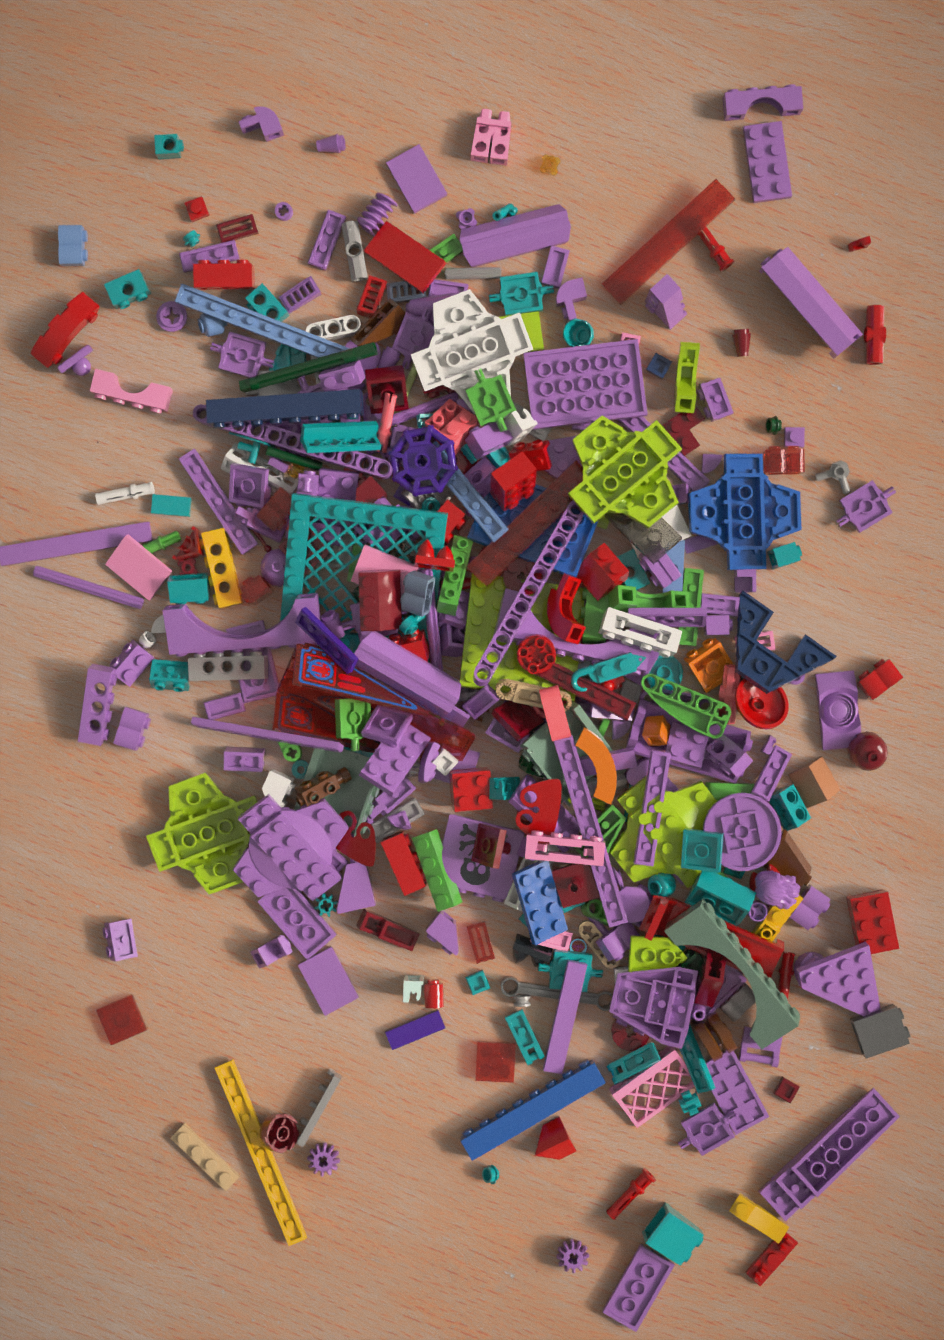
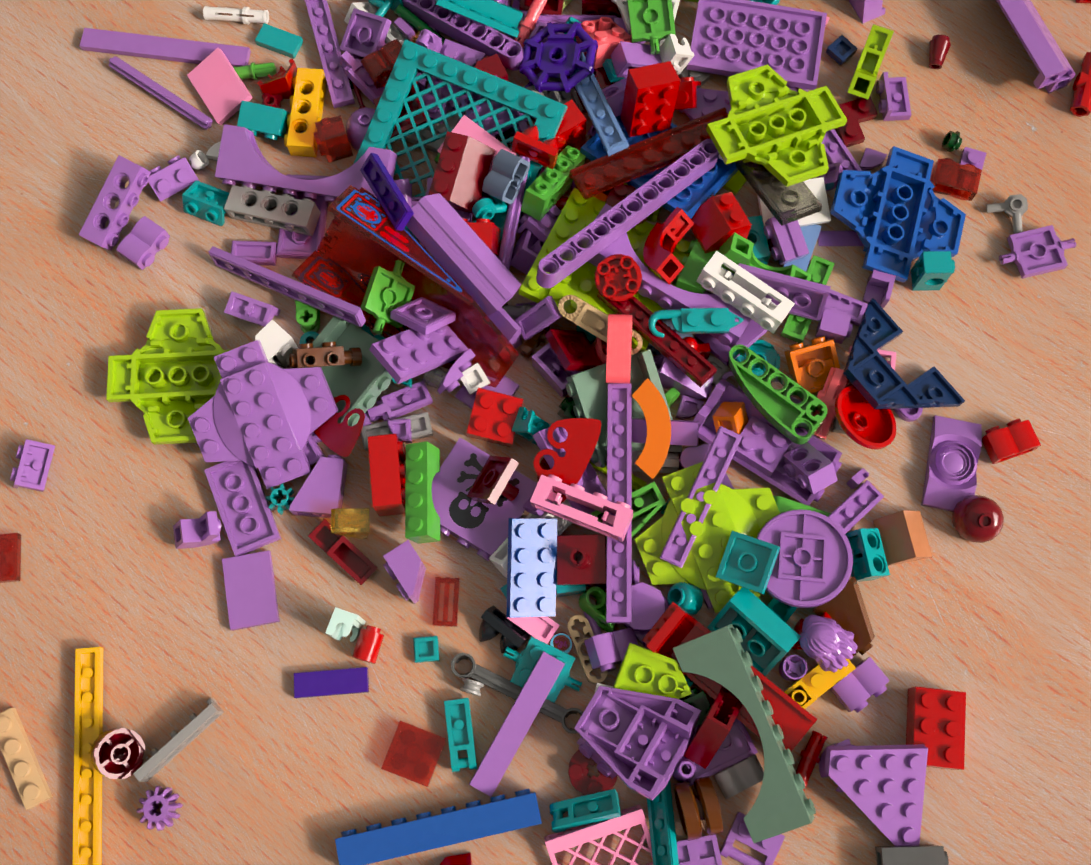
camera: 15 degrees right, 15 degrees down
(389, 909) = (350, 522): none -> clear yellow slope

